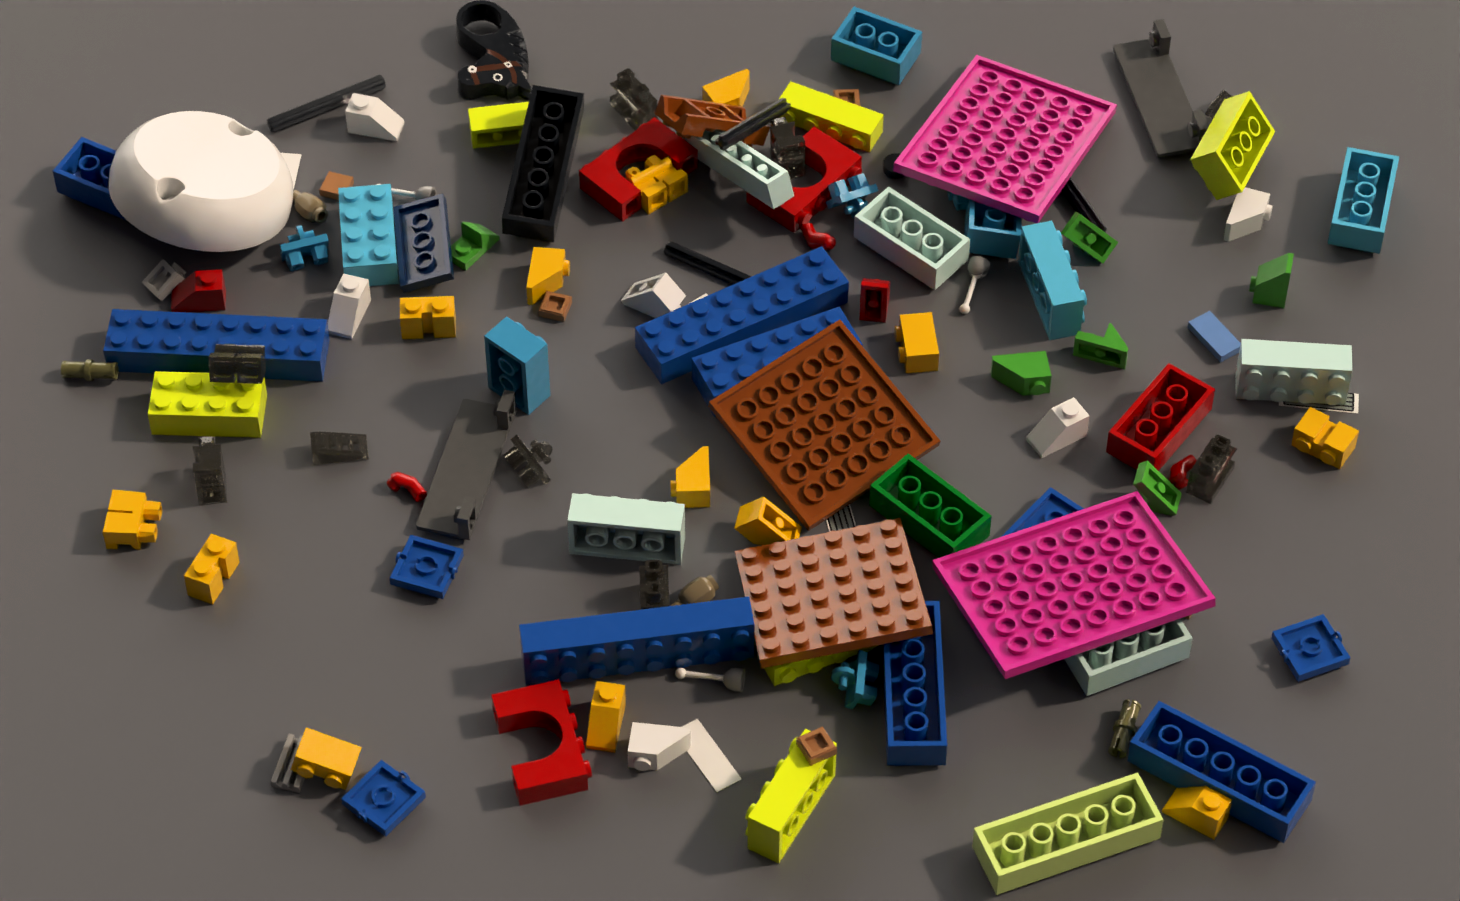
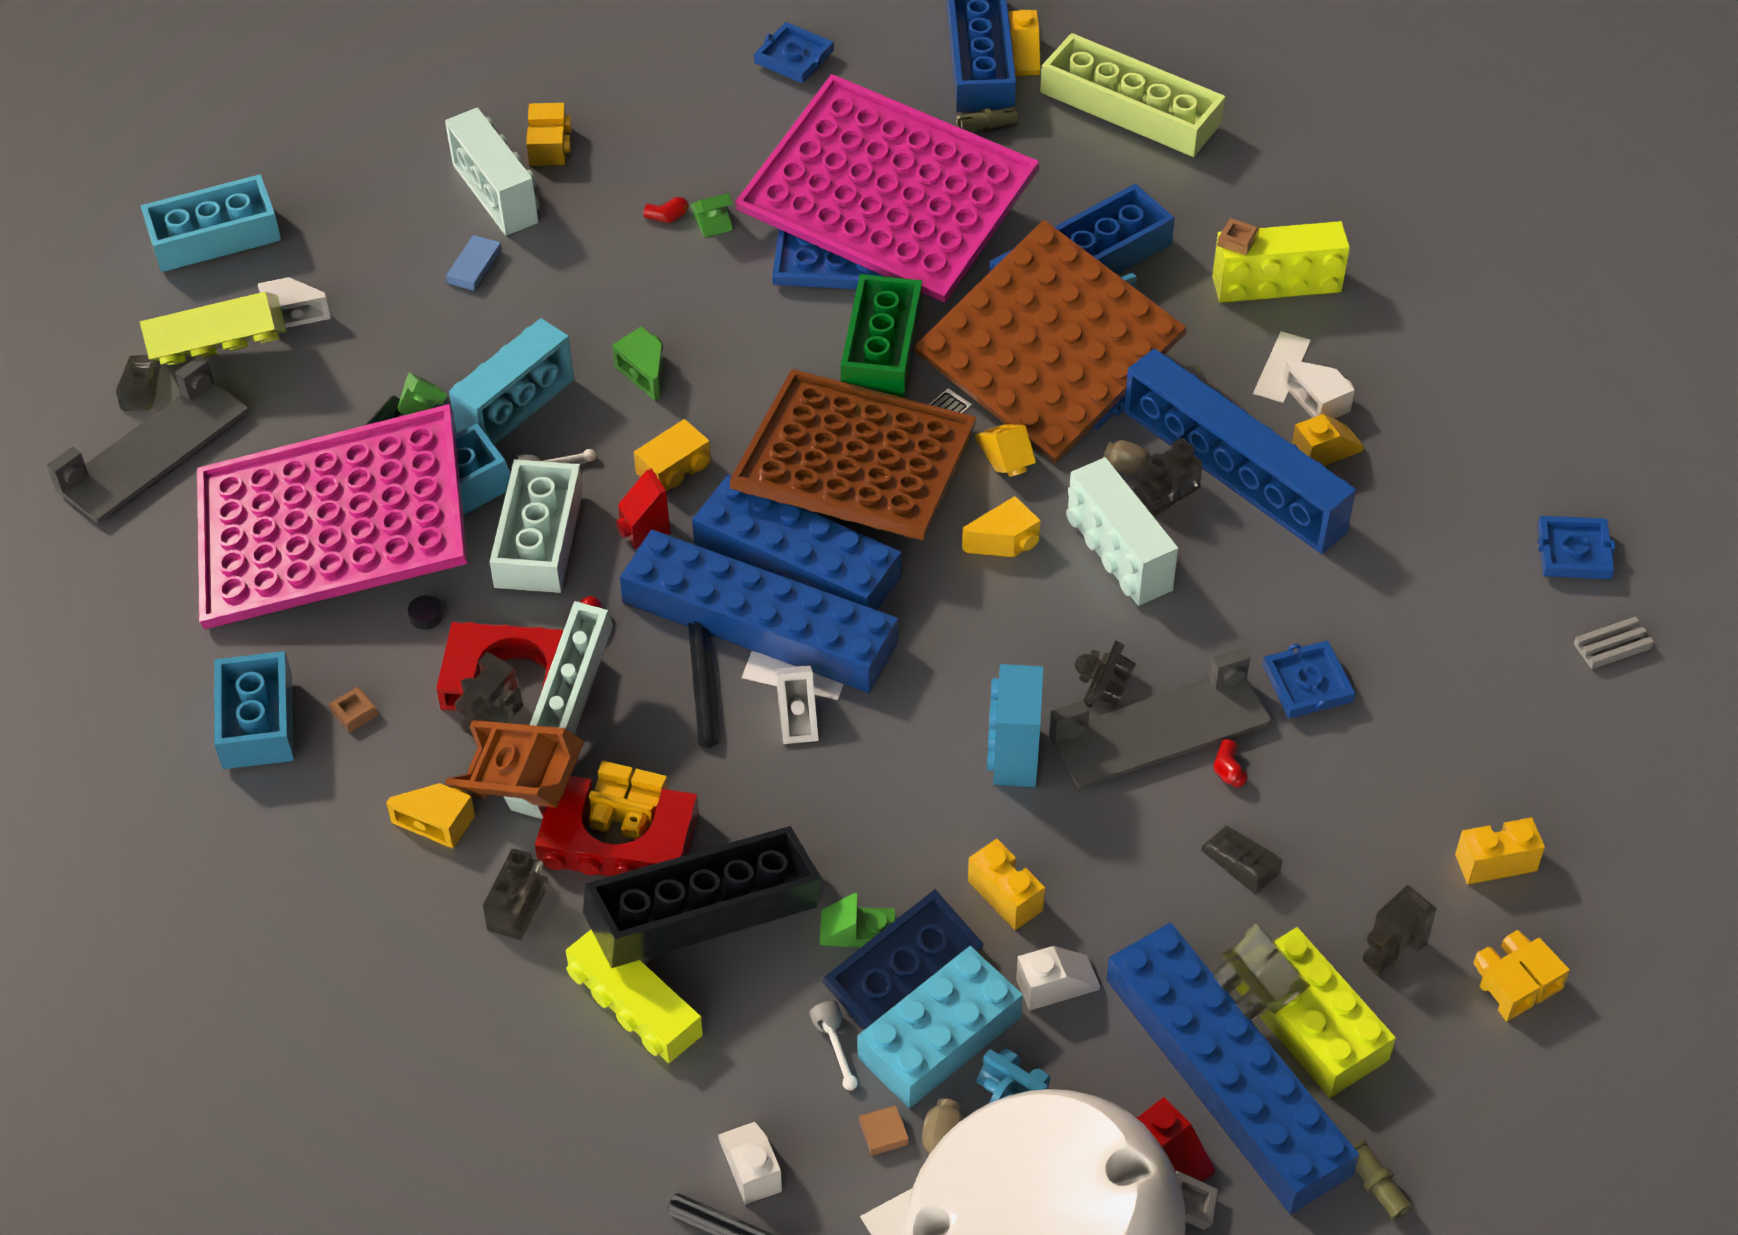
camera: 125 degrees left, 0 degrees up
(326, 758) = (1594, 603): yellow brick -> none
(501, 56) = (528, 1089): black animal -> none
(544, 707) = (1409, 437): red arch -> none
(546, 272) = (847, 819): yellow slope -> none
(555, 306) = (877, 792): medium nougat tile -> none
(752, 124) = (499, 709): black axle -> none
(833, 116) = (398, 702): neon yellow brick -> none
(841, 195) = (510, 608): dark azure hips -> none
(1059, 428) = (692, 305): white slope -> none
(1105, 350) = (558, 314): bright green slope -> none
(1160, 418) = (626, 235): red brick -> none
(1211, 469) = (645, 175): clear smoke hips -> none
(1272, 281) = (377, 233): bright green slope -> none

